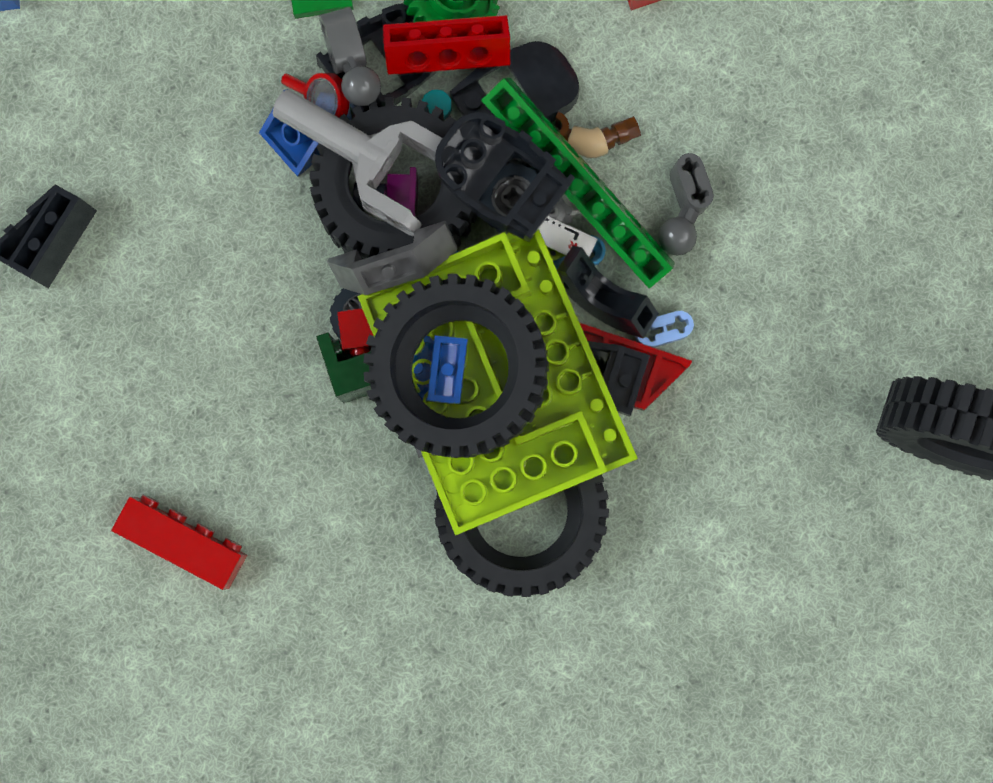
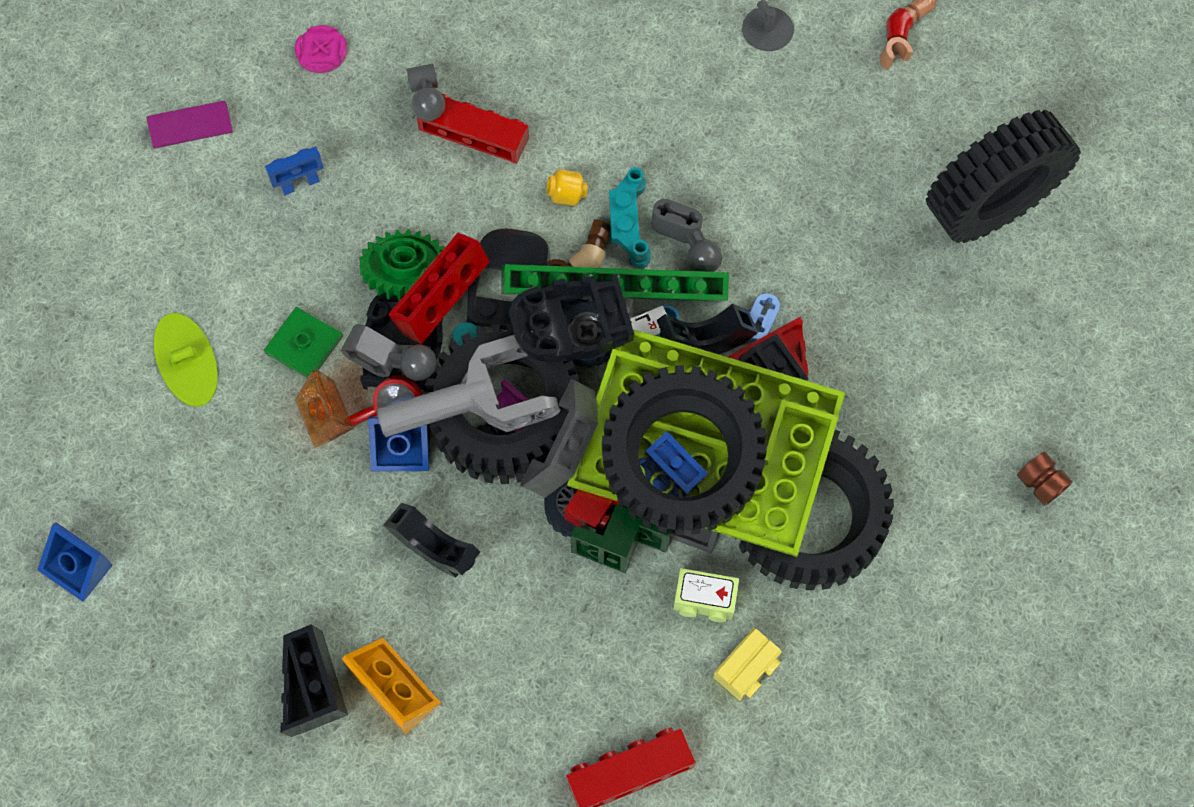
camera: 50 degrees left, 15 degrees down
(94, 299) = (391, 684): none -> light orange slope
(234, 229) = (430, 542): none -> black arch
(275, 50) = (322, 409): none -> clear orange slope
(343, 565) = (748, 664): none -> light yellow brick
(374, 483) = (706, 595): none -> brick
(641, 68) = (566, 187): none -> yellow head
(657, 138) = (625, 218): none -> teal plate
(719, 685) = (1044, 478): none -> copper wheel
(956, 106) = (767, 27): none -> dark grey shield

